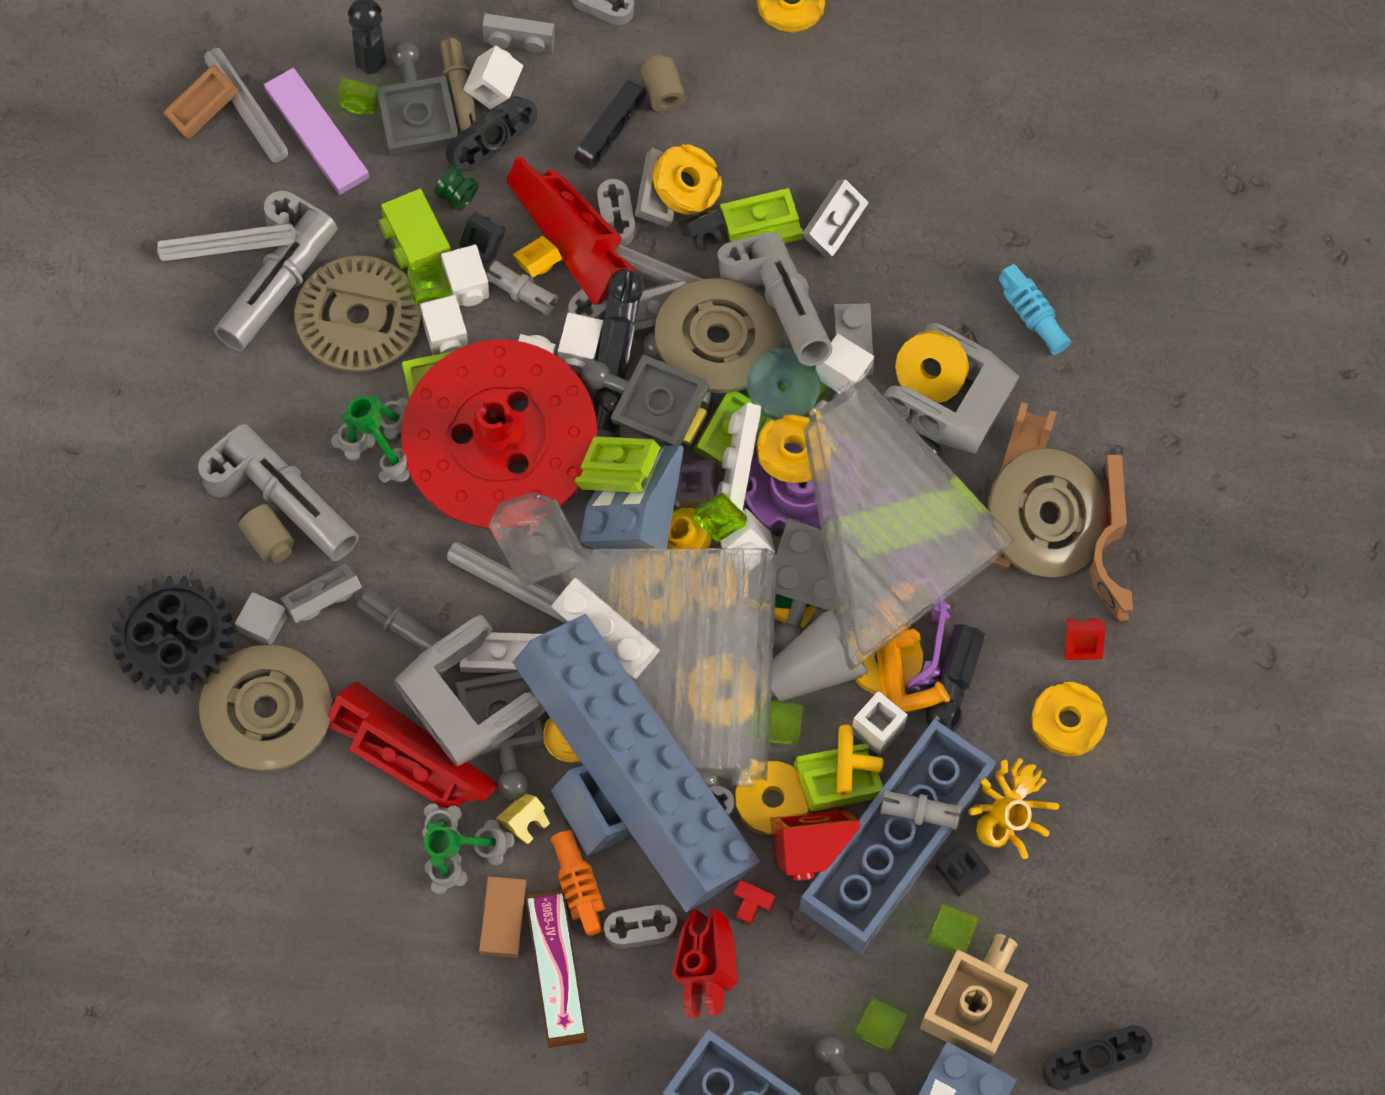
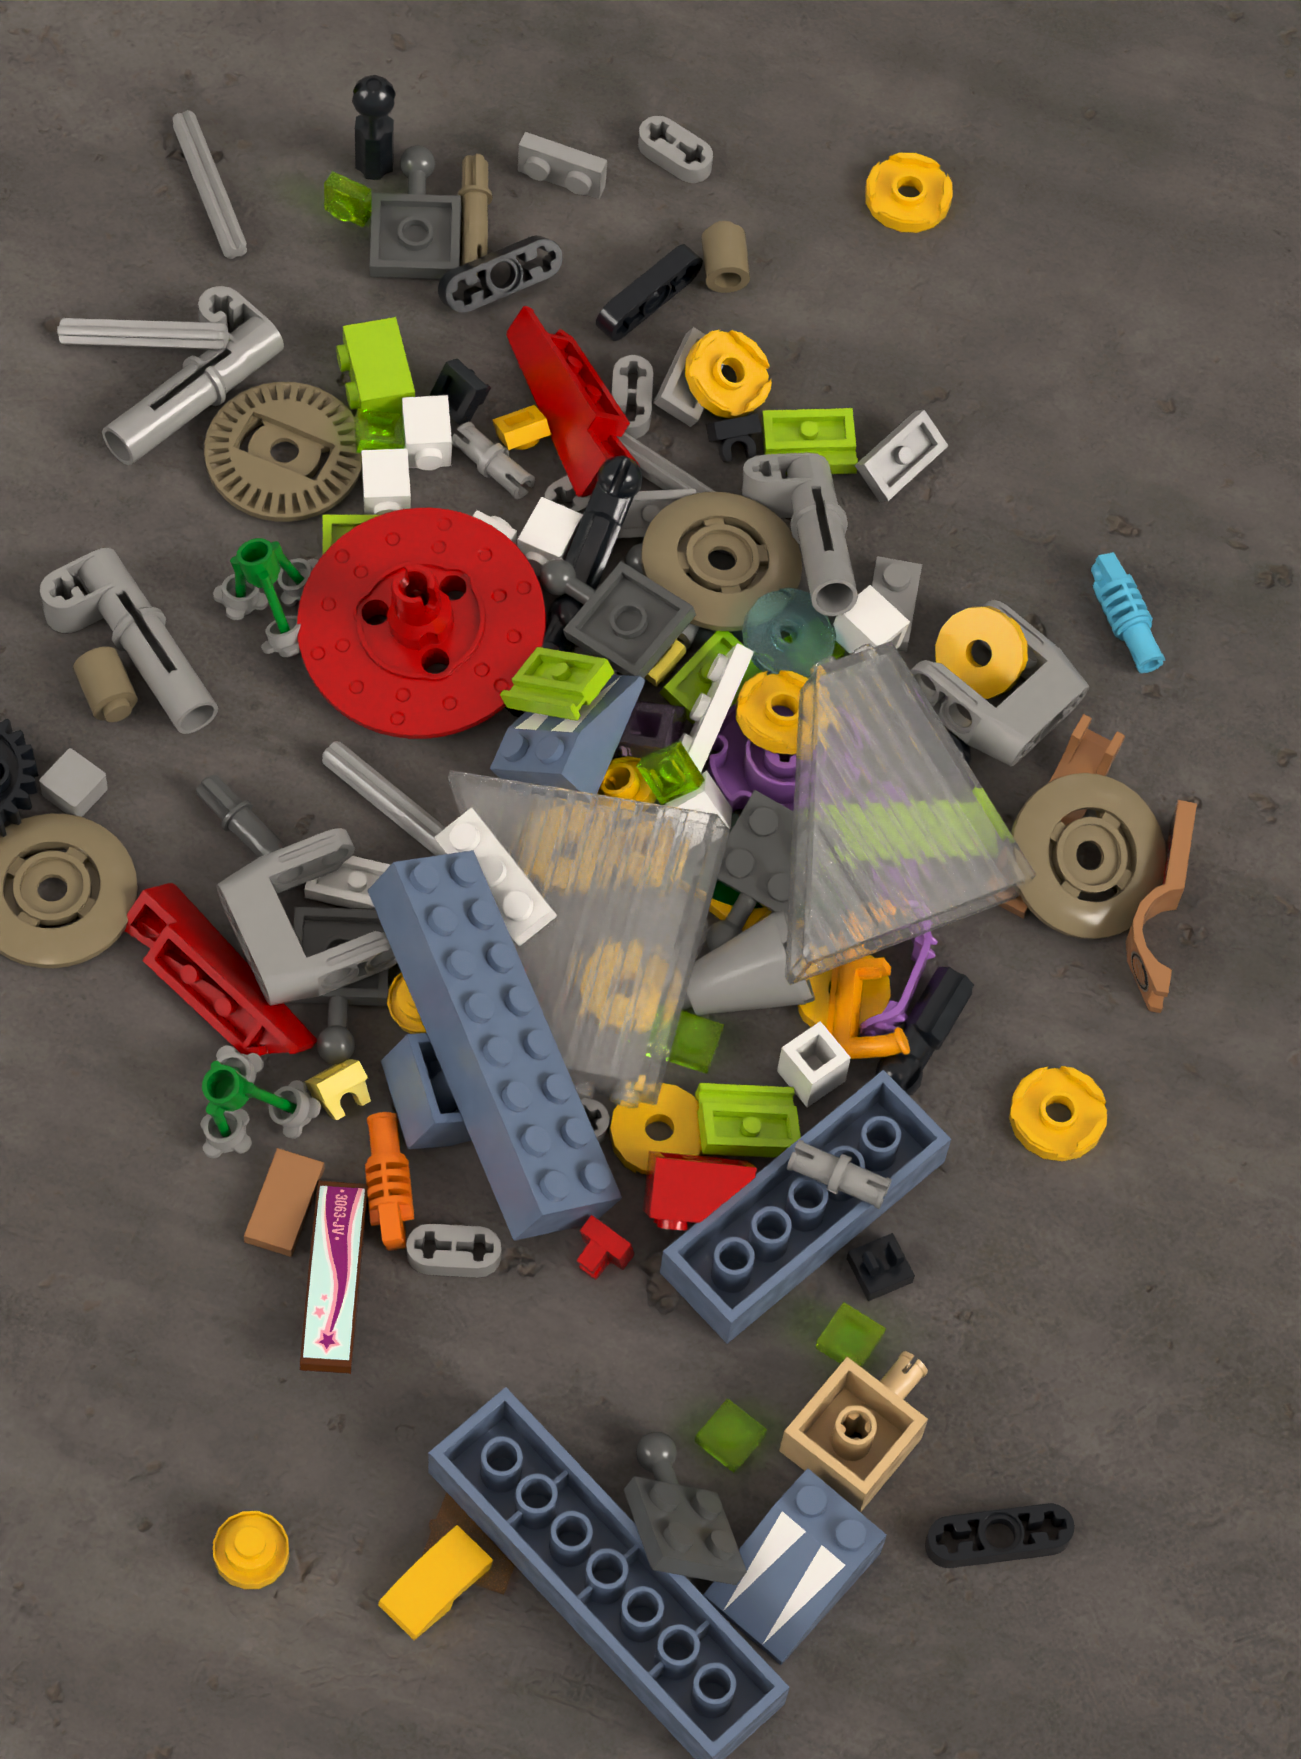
camera: 10 degrees right, 5 degrees down
(201, 101) = (155, 168): medium nougat tile -> none
(316, 131) = (287, 231): lavender tile -> none
(325, 590) = (172, 763): light grey plate -> none
(456, 188) = (441, 328): dark green wheel -> none
(493, 77) = (517, 208): white brick -> none
(536, 538) = (435, 751): clear slope -> none
(705, 962) = (524, 1308): red hinge -> none
(848, 761) = (764, 1101): yellow piece -> none
(1011, 811) = (957, 1206): yellow animal -> none
(1084, 639) = (1099, 1019): red tile -> none

